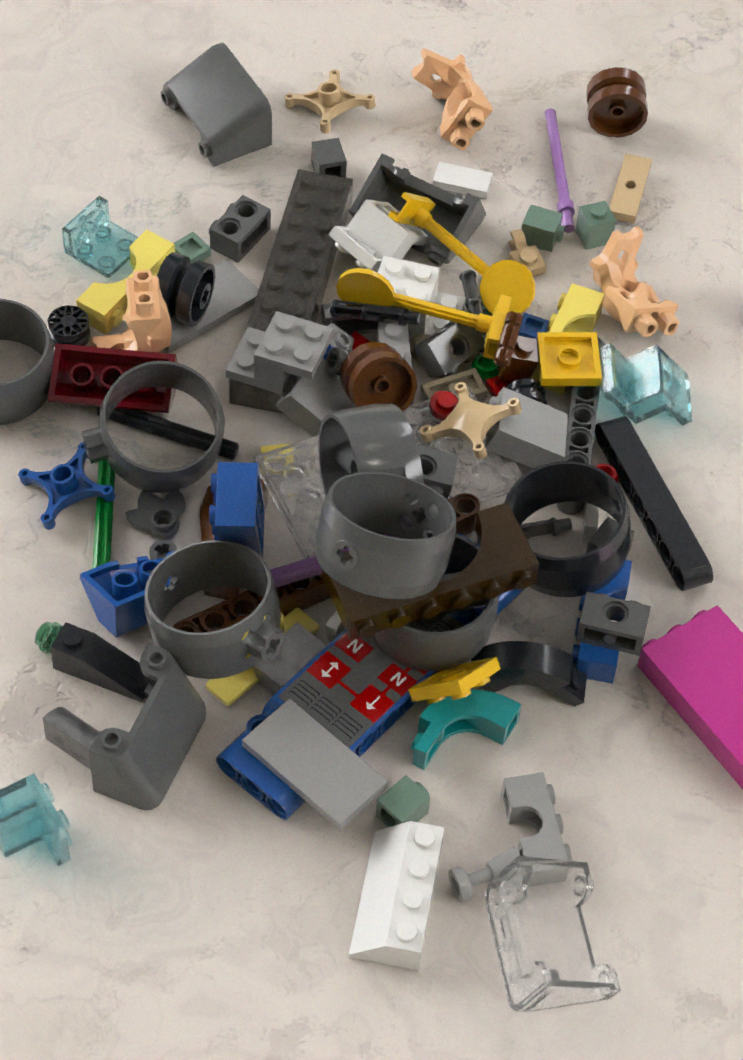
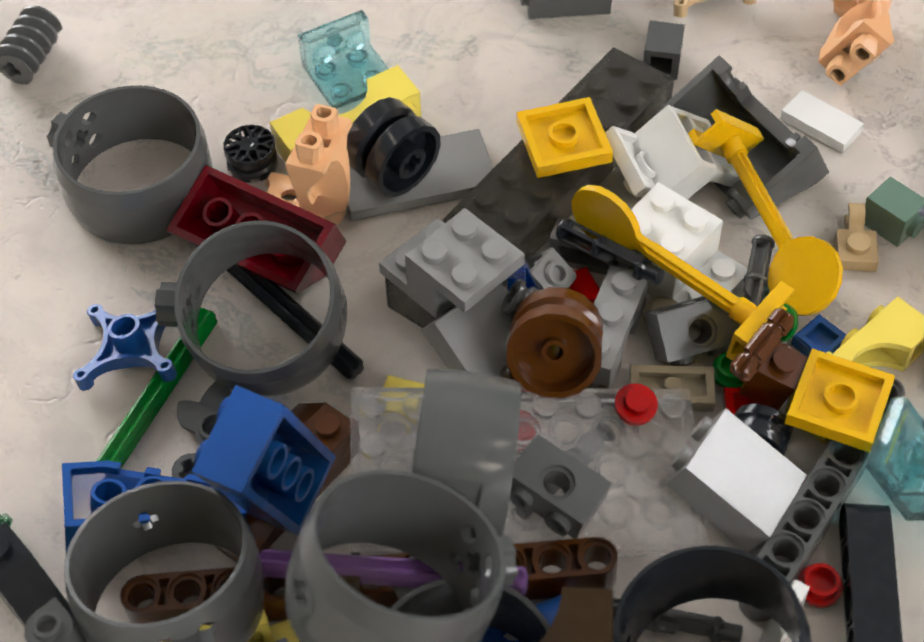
camera: 30 degrees right, 0 degrees up
(193, 247) = (442, 105): sand green plate -> none
(240, 228) = (511, 91): dark grey brick -> none
(304, 244) = (564, 137): none -> yellow plate
(470, 420) = (656, 440): tan piece -> none

